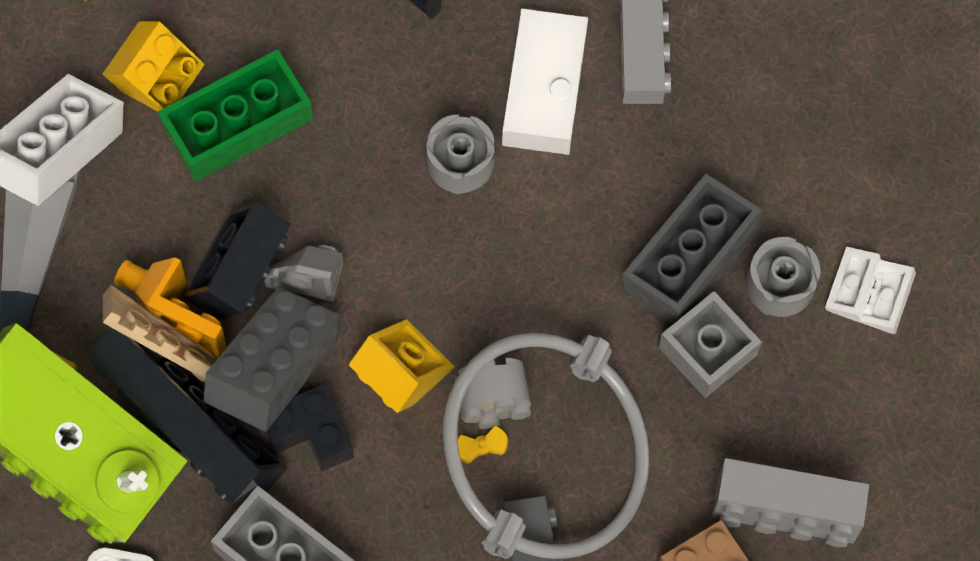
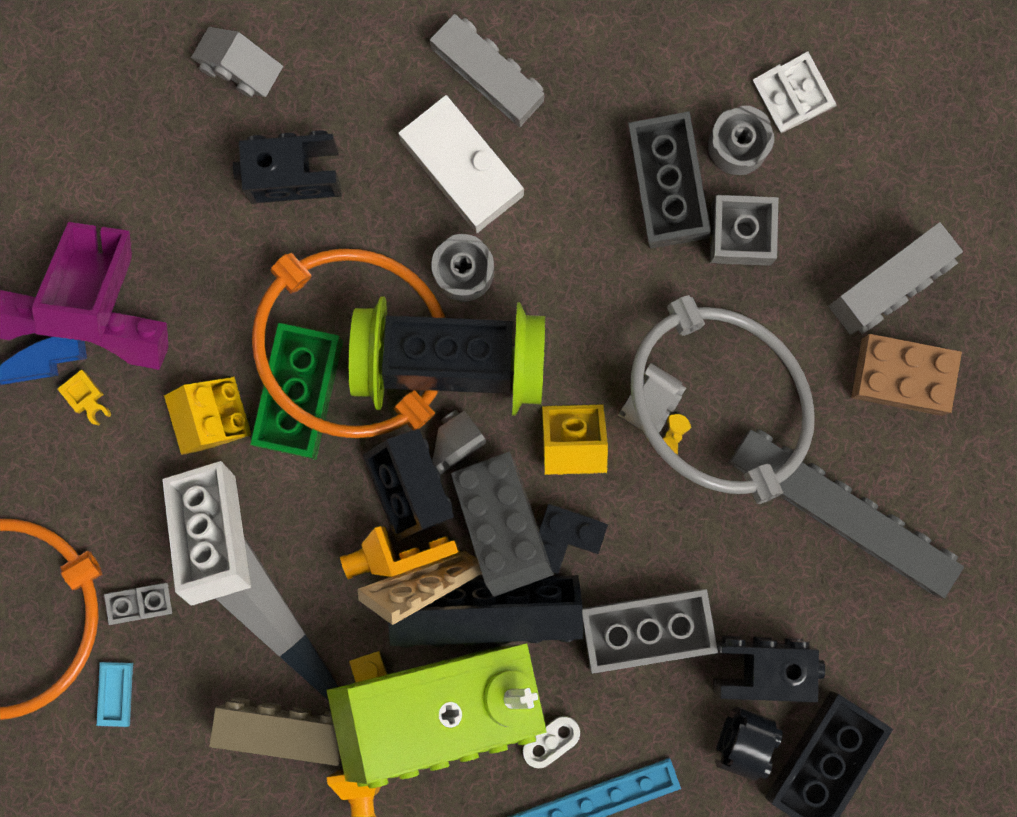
camera: 45 degrees left, 15 degrees up
(304, 209) = (293, 275): none -> orange piece
(373, 193) = (445, 355): none -> black brick

